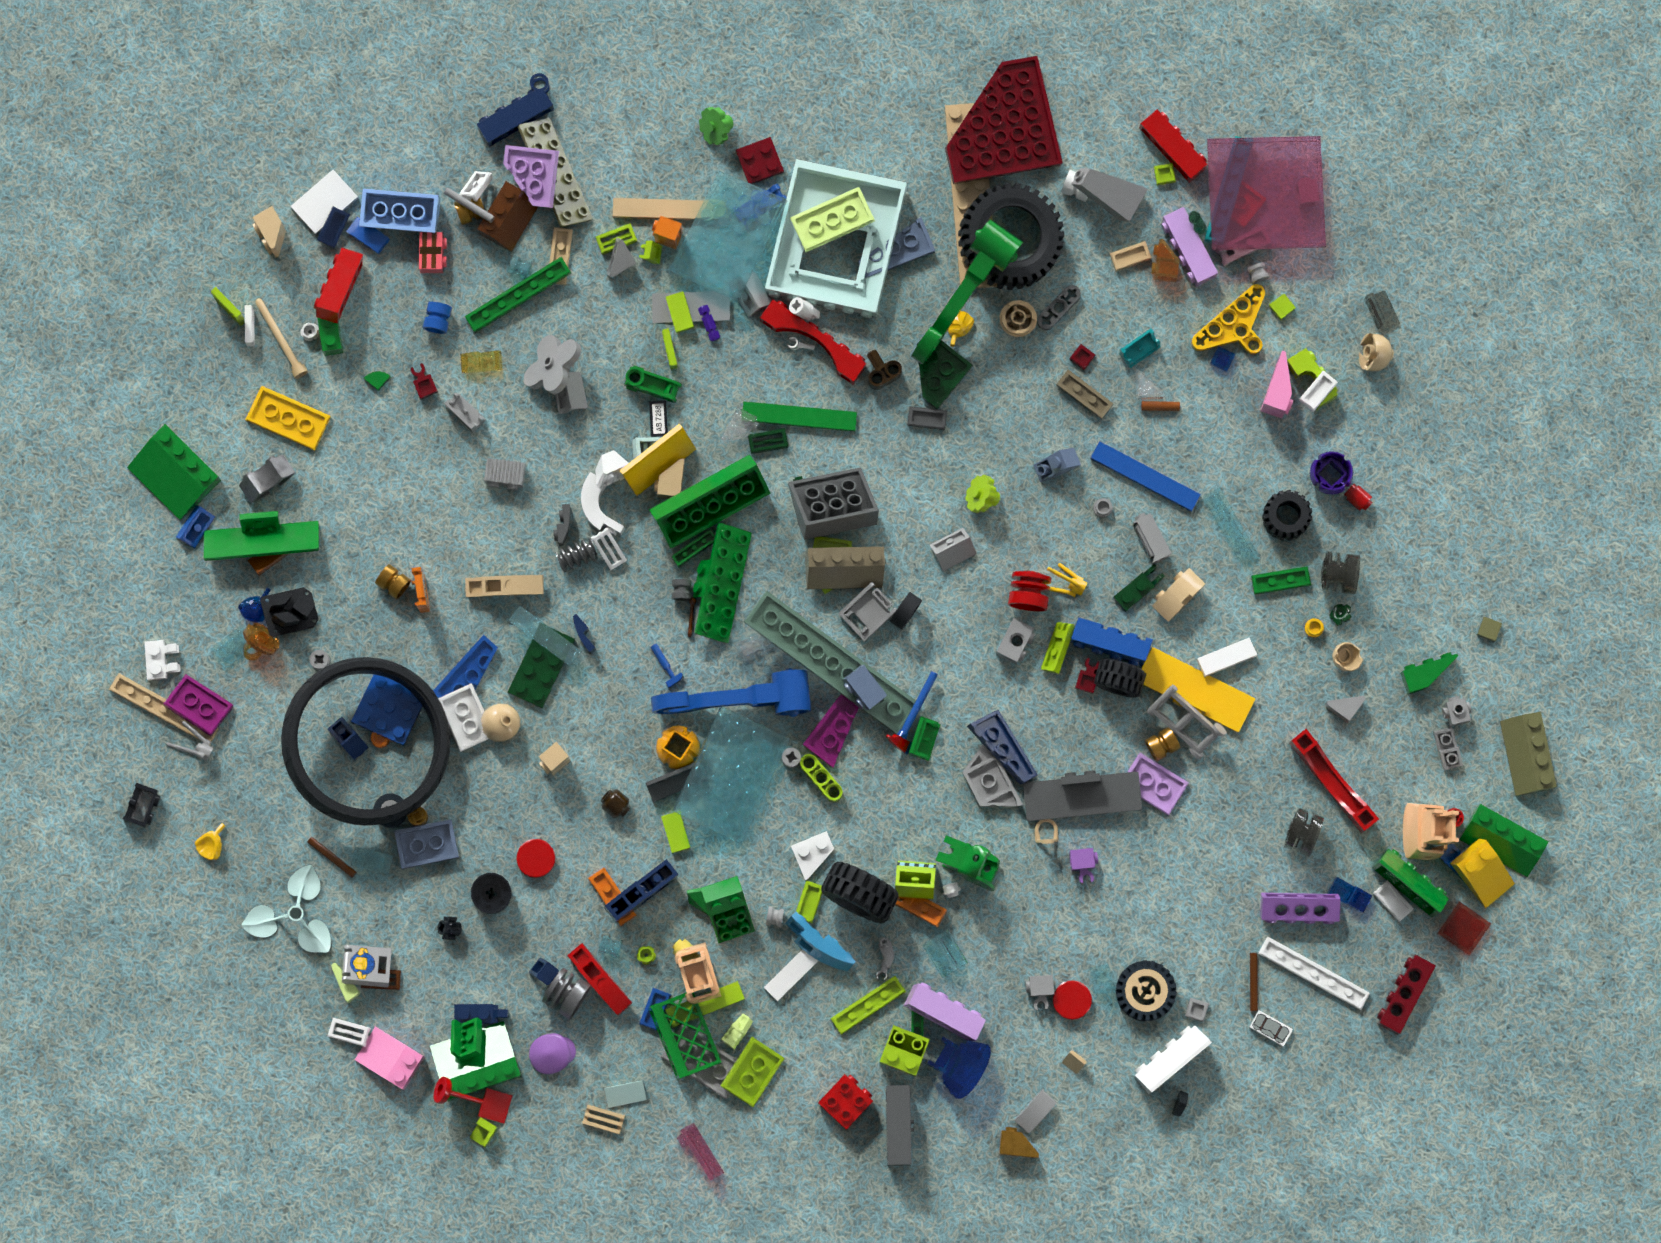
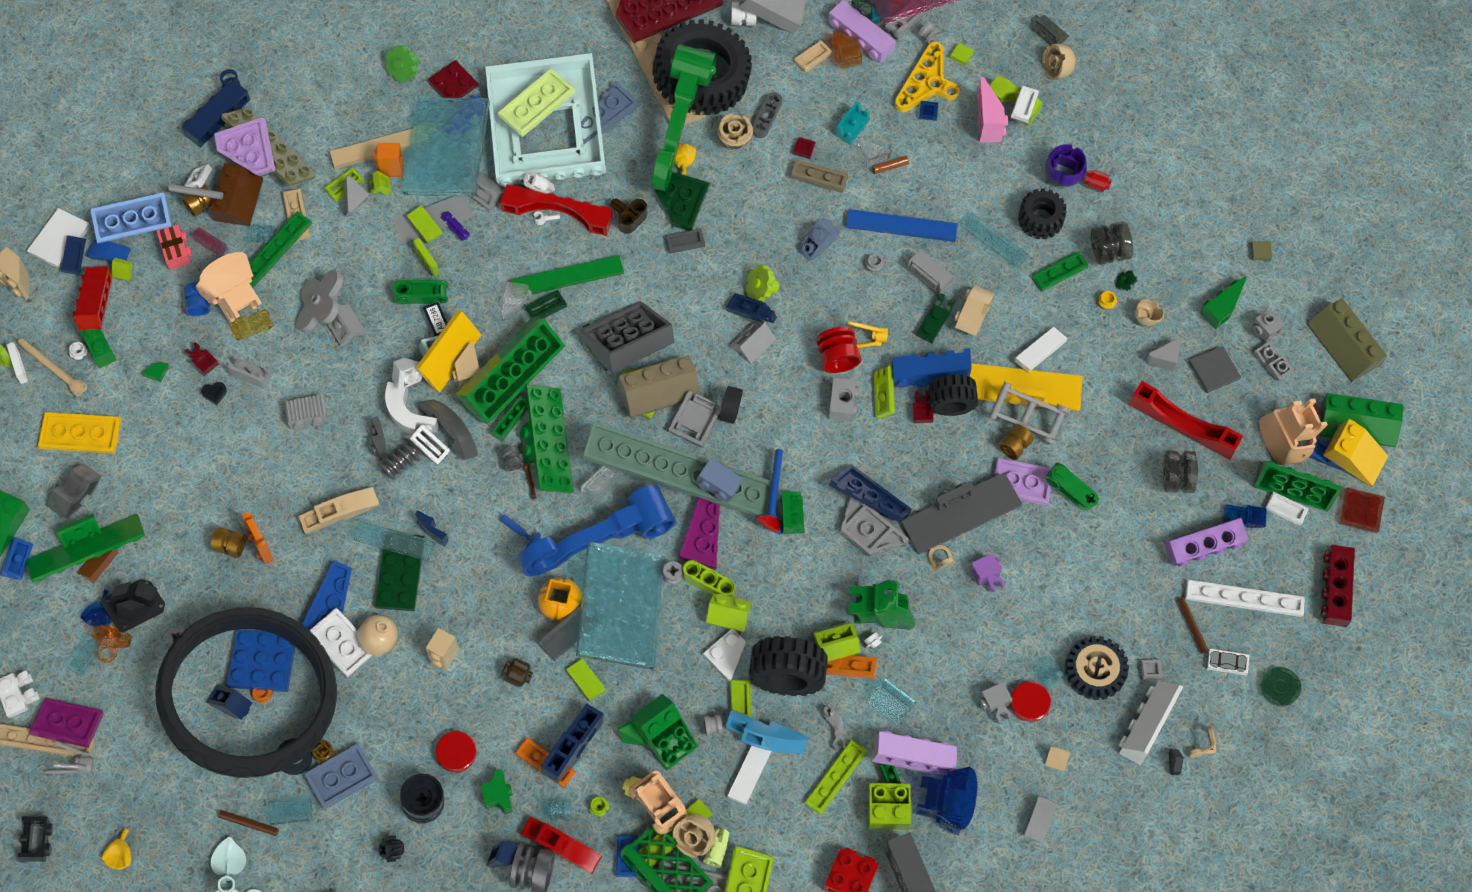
camera: 20 degrees left, 15 degrees down
(375, 259) = (121, 269): none -> lime tile
(425, 421) = (214, 393): none -> black tile
(467, 258) = (209, 242): none -> clear pink piece
(471, 320) = (229, 282): none -> light nougat piece
(560, 910) = (497, 793): none -> green brick
(637, 537) = (464, 443): none -> dark grey slope
(719, 1015) = (694, 835): none -> tan cylinder
(827, 816) = (728, 612): none -> lime brick
(962, 515) = (751, 308): none -> dark blue hinge
(1016, 1144) = (1035, 858): pearl gold slope -> none
(1195, 808) = (1071, 486): none -> green piece
(1224, 1088) = (1206, 750): none -> tan piece
(1309, 1069) = (1280, 686): none -> clear green tile
(1387, 736) = (1214, 369): none -> dark grey tile

